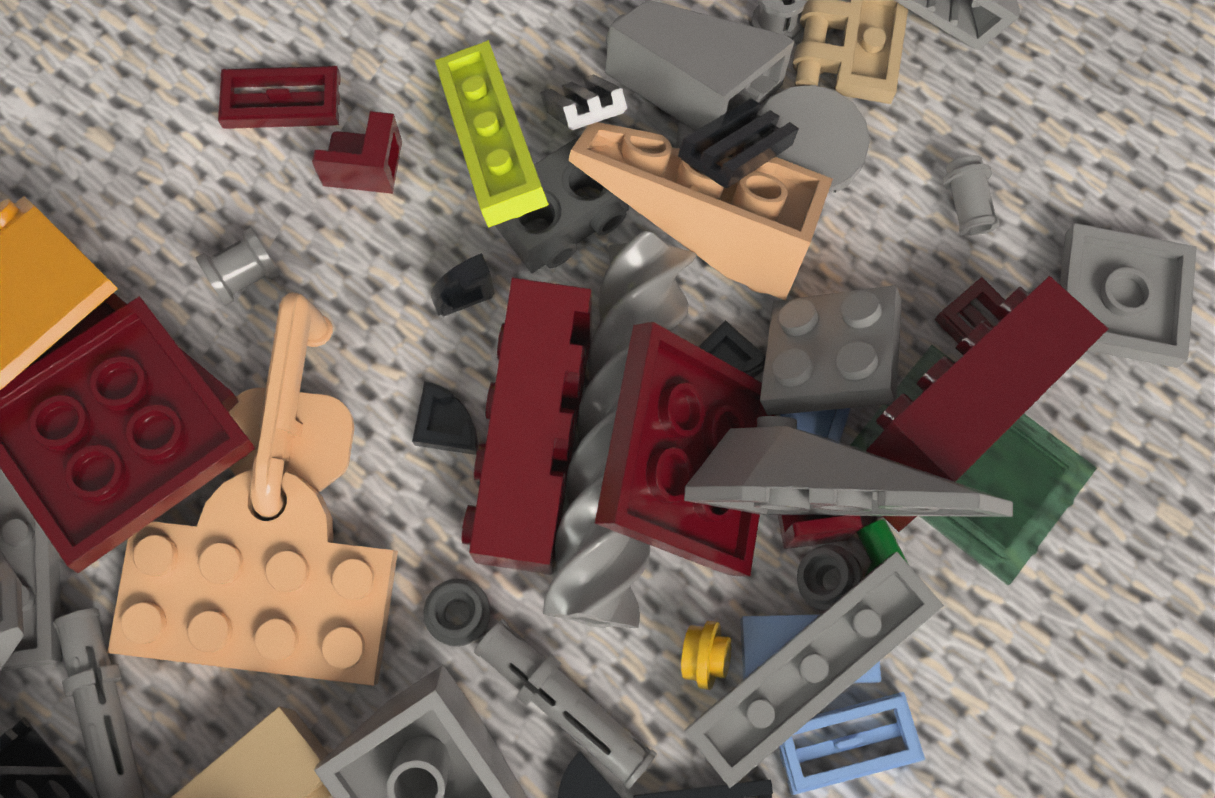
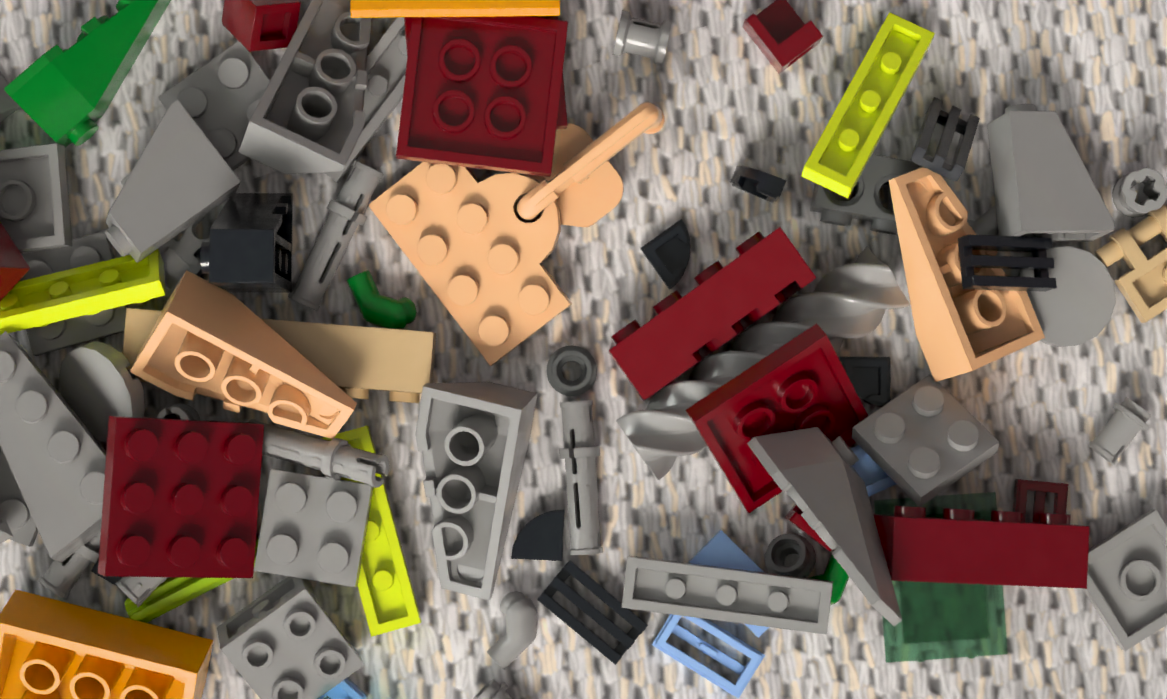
camera: 45 degrees right, 15 degrees up
(210, 739) = (378, 308): none -> green arm
(705, 654) = (680, 529): yellow plate -> none

